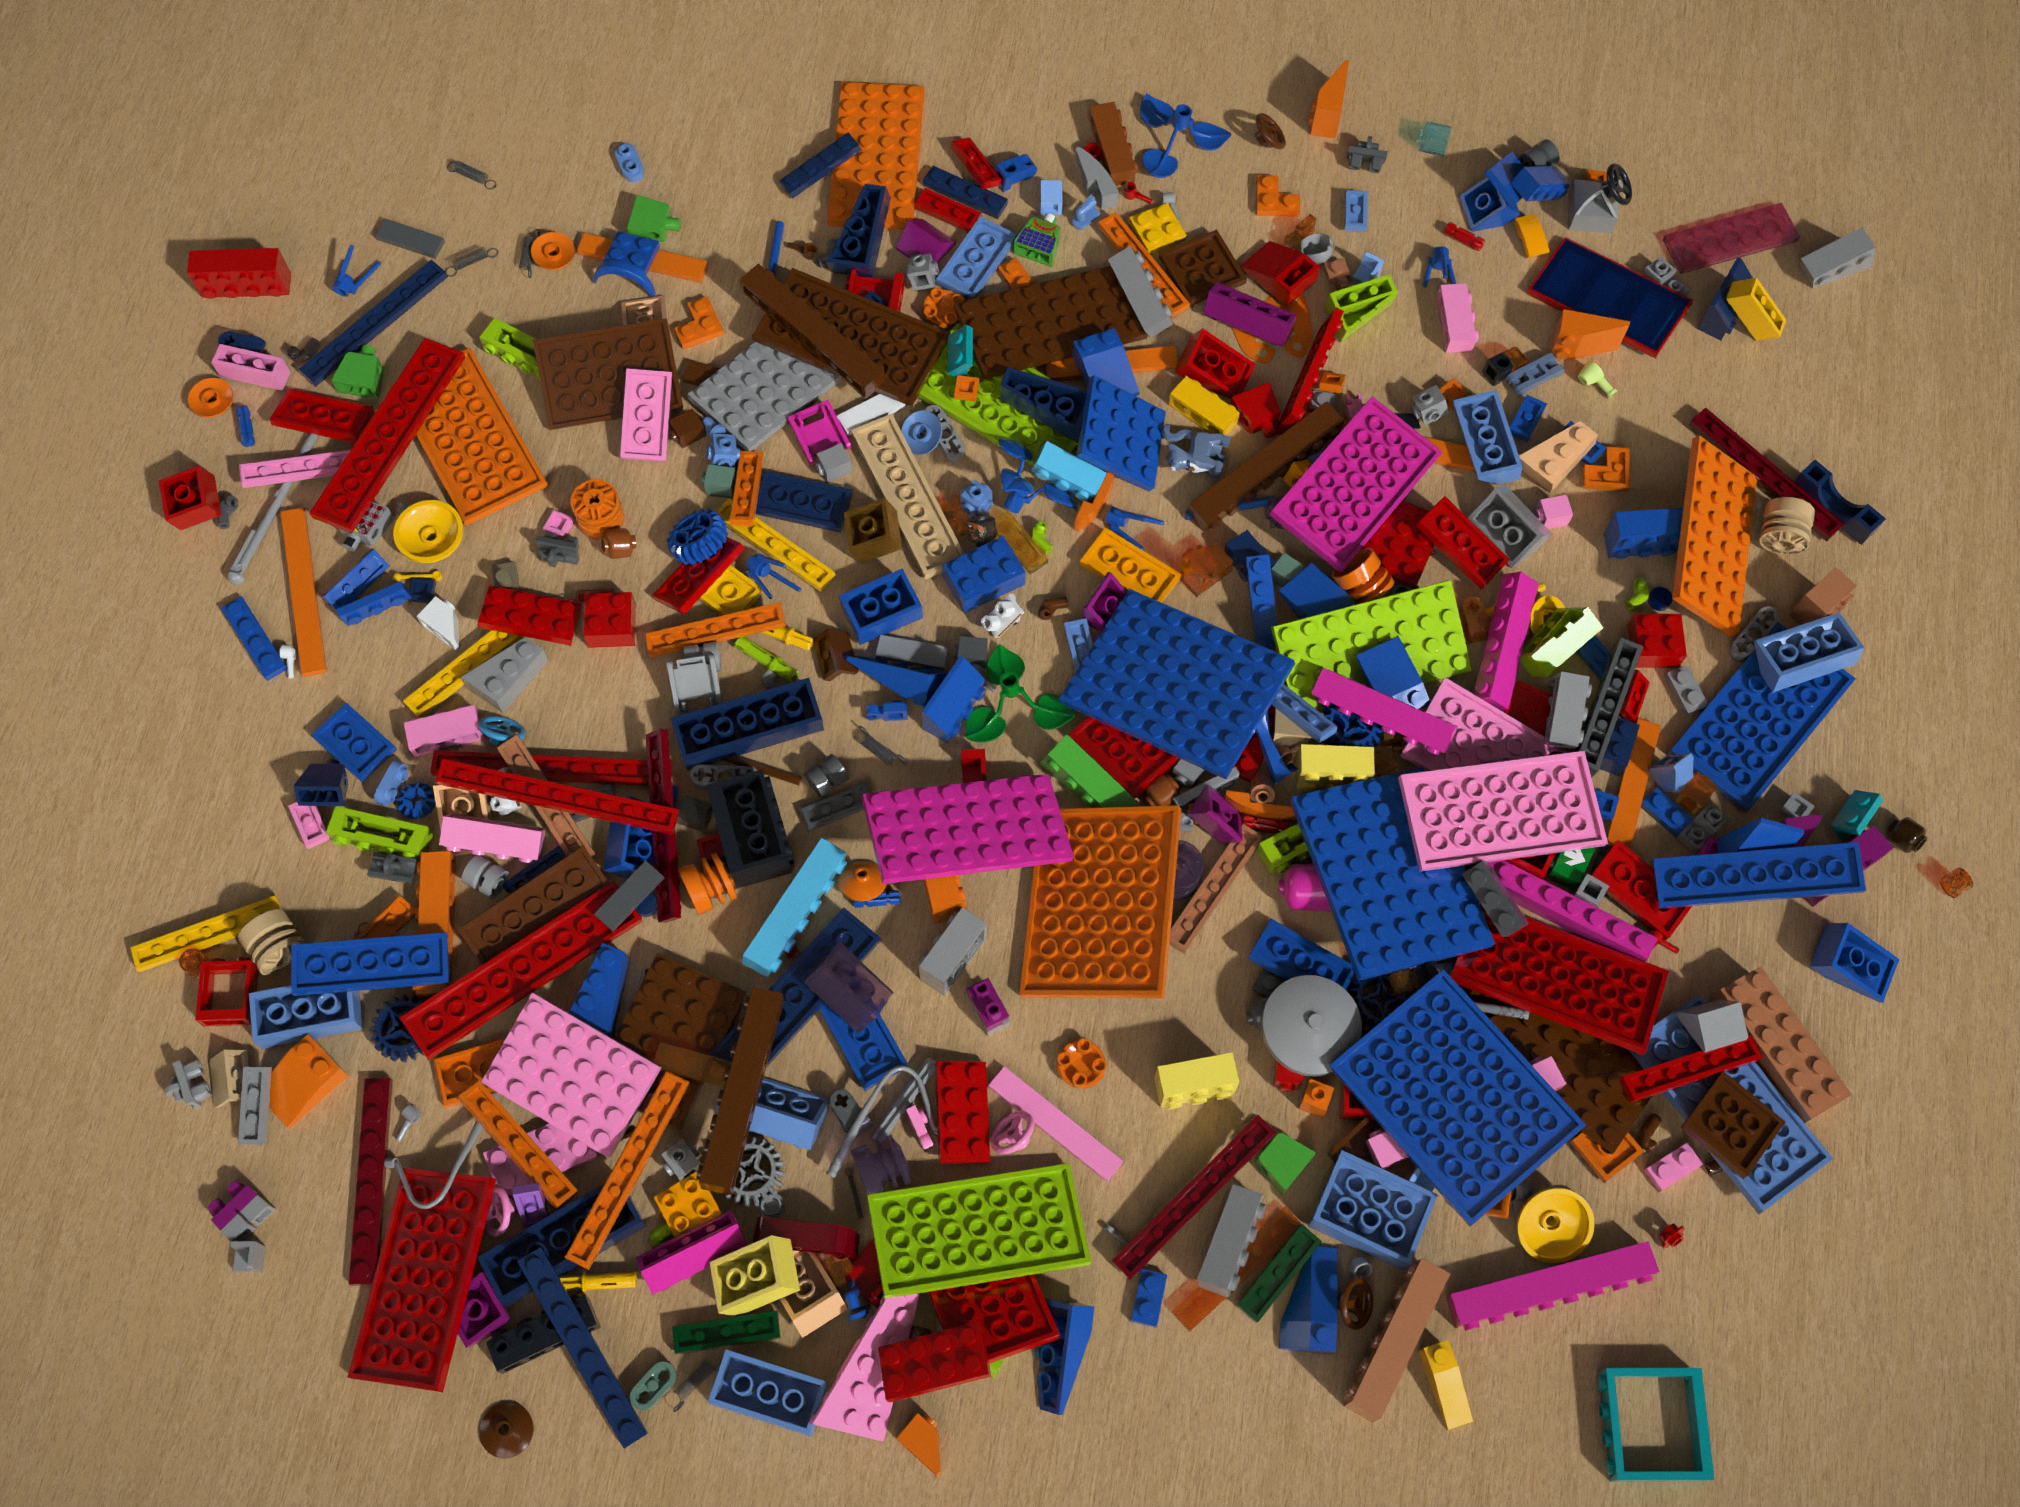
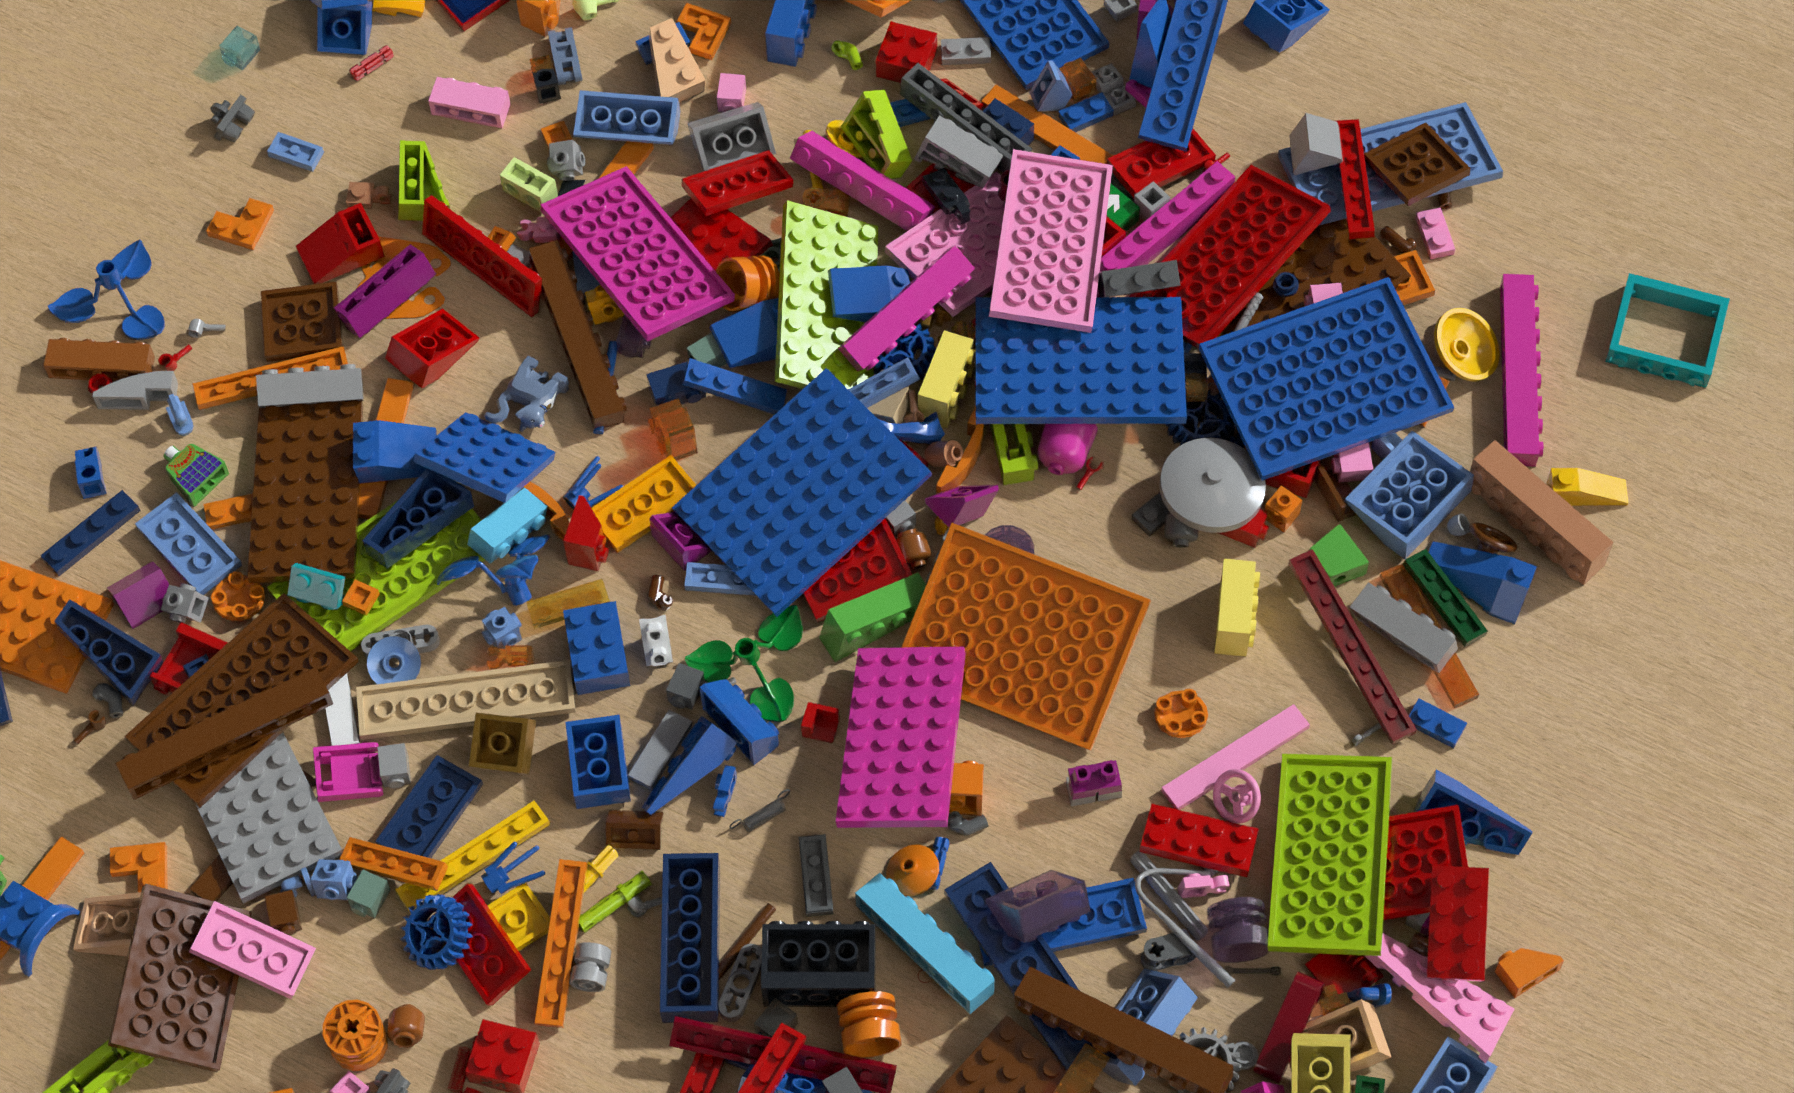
camera: 70 degrees left, 5 degrees down
(693, 681) = (616, 981): light grey container -> none
(710, 845) = (823, 1017): red plate -> none
(775, 249) = (81, 760): blue bar -> none
(828, 774) = (780, 872): dark grey wheel -> none
(917, 911) = (964, 826): none -> dark grey arm
(947, 209) = (109, 556): red plate -> none
(952, 951) = (1027, 796): light grey brick -> none
(976, 163) = (60, 508): red plate -> none
(981, 528) = (541, 633): clear smoke head -> none
(1039, 534) = (565, 582): lime arm -> none
(1051, 197) = (142, 443): light blue panel -> none
(1078, 531) = (585, 538): none -> red slope
(1157, 228) = (228, 350): yellow plate -> none
(1203, 407) = (478, 373): yellow brick -> none
(1213, 889) = (1017, 513): nougat plate -> none
(1217, 783) = (926, 516): light grey tile -> none
(1258, 410) = (503, 322): red torso -> none
(1265, 824) = (980, 465): red axle -> none
(1267, 133) = (159, 201): reddish brown piece -> none
(1293, 955) = (1133, 480): blue plate -> none
(1297, 919) = (1089, 472): none -> red hand
(1302, 230) = (299, 207): clear orange plate -> none
(1317, 247) = (327, 201): light grey hair -> none
(1329, 104) = (155, 126): orange slope -> none
(1369, 268) = (377, 164): light blue panel -> none
(1394, 383) = (527, 184): none -> yellowish green brick
(1441, 261) = (393, 93): blue plant -> none
(1522, 714) = (947, 194): none -> black hinge
(1527, 418) = (612, 77): blue plate -> none
(1555, 1032) = (1285, 279): none -> dark blue plate
(1660, 599) = (860, 36): clear blue tile -> none
(1672, 1235) = (1500, 256): red plate -> none
(1787, 1049) = (1367, 95): nougat brick -> none

